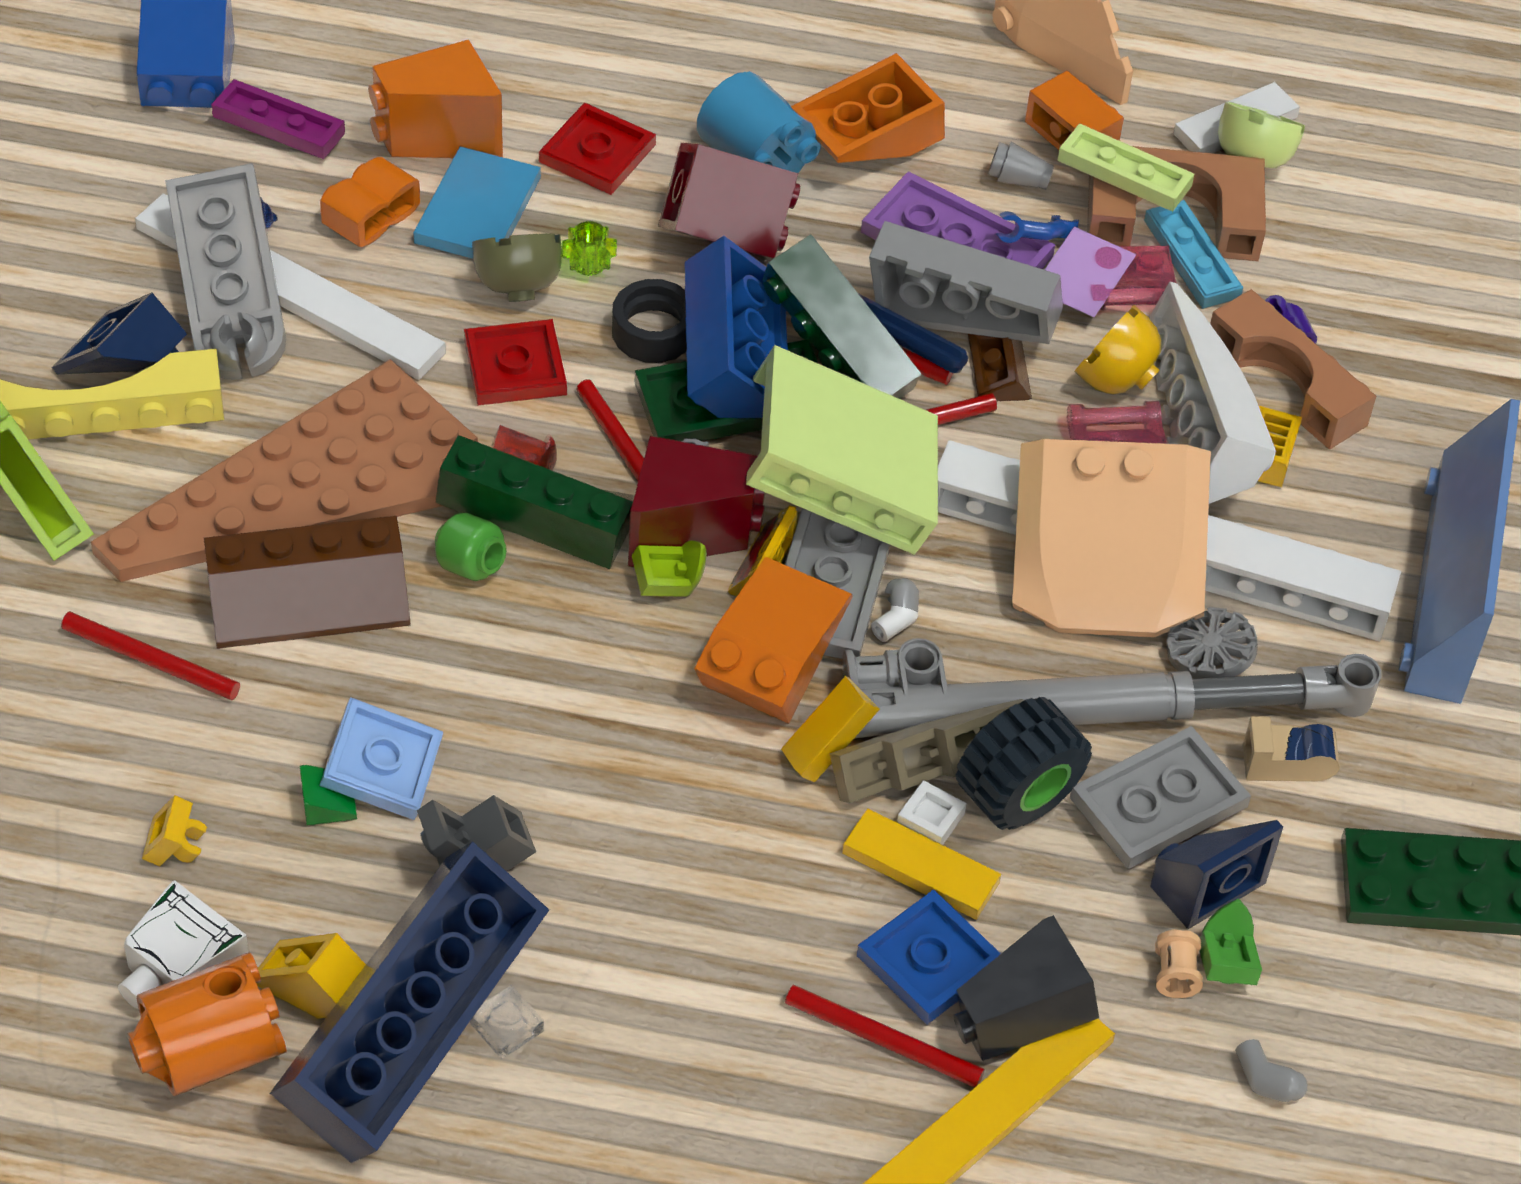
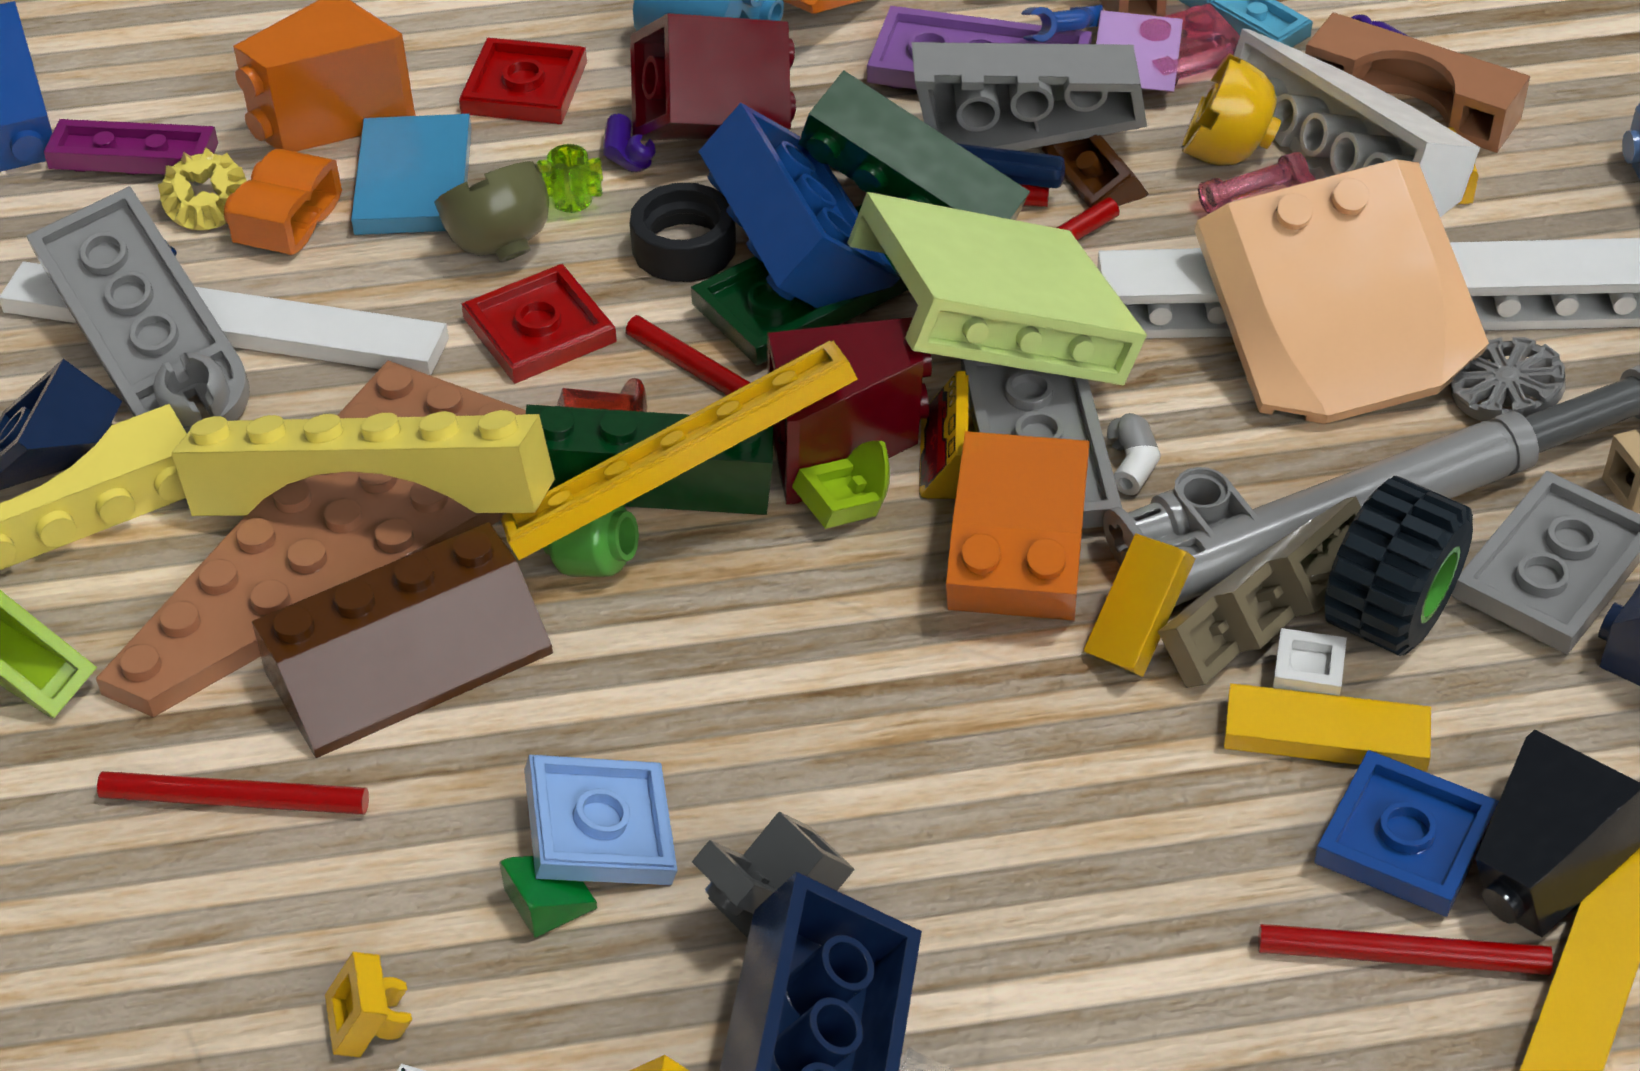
camera: 15 degrees left, 5 degrees down
(310, 189) = (206, 208): none -> light yellow gear
(401, 467) = (478, 460): none -> light yellow arch
(546, 505) = (679, 448): none -> yellow tile
(644, 233) = (623, 148): none -> dark purple arm

